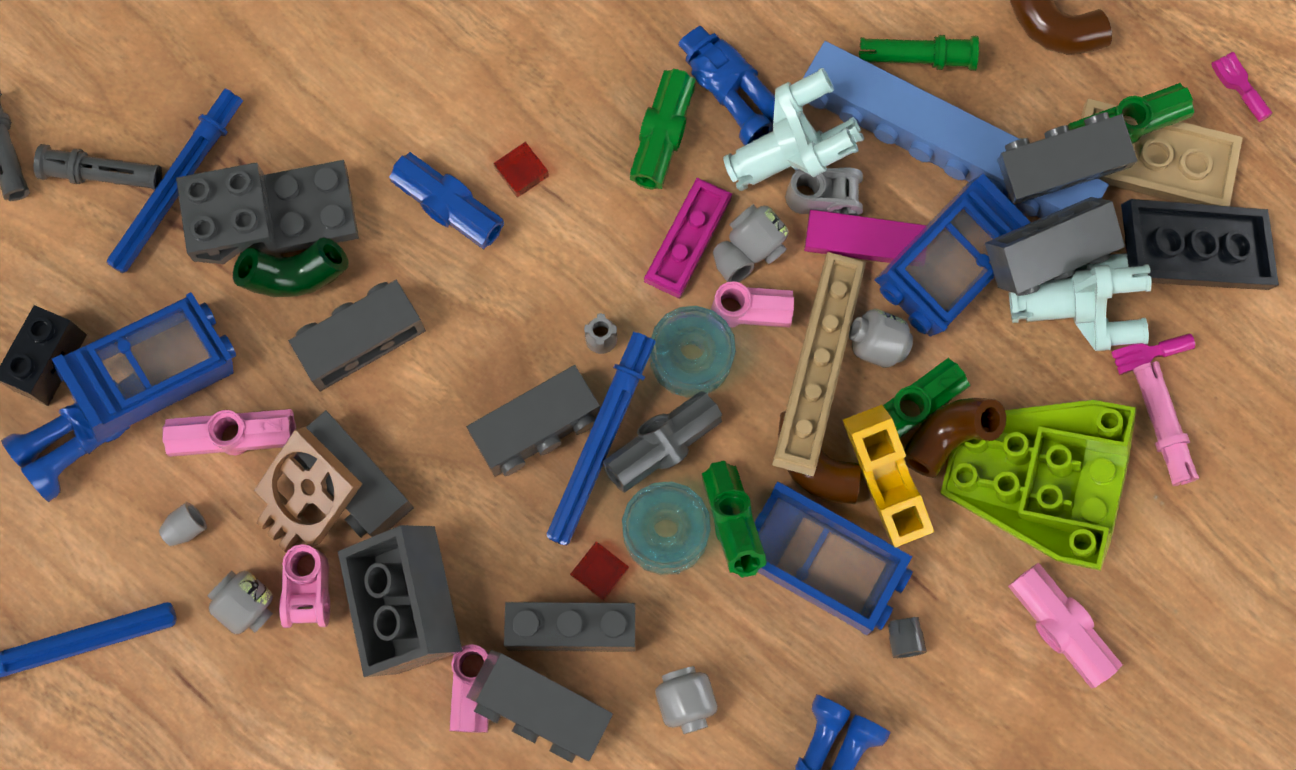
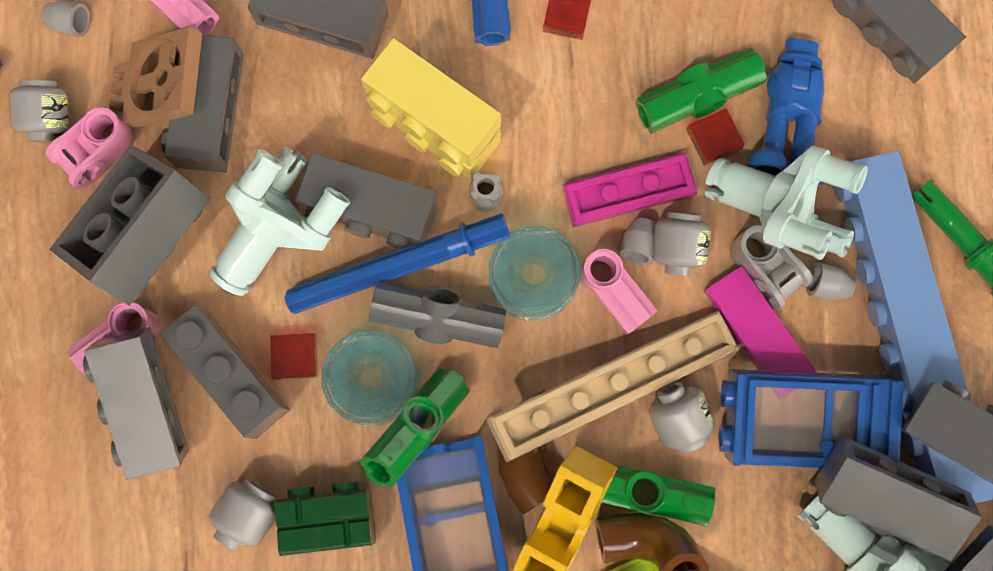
camera: 50 degrees right, 5 degrees up
(492, 498) = (271, 219): none -> light aqua wheel
(513, 317) = (431, 110): none -> light yellow piece
(702, 149) = (715, 136): none -> clear red tile
(741, 644) = (324, 521): none -> dark green brick
(873, 163) = (830, 283): none -> light grey hose

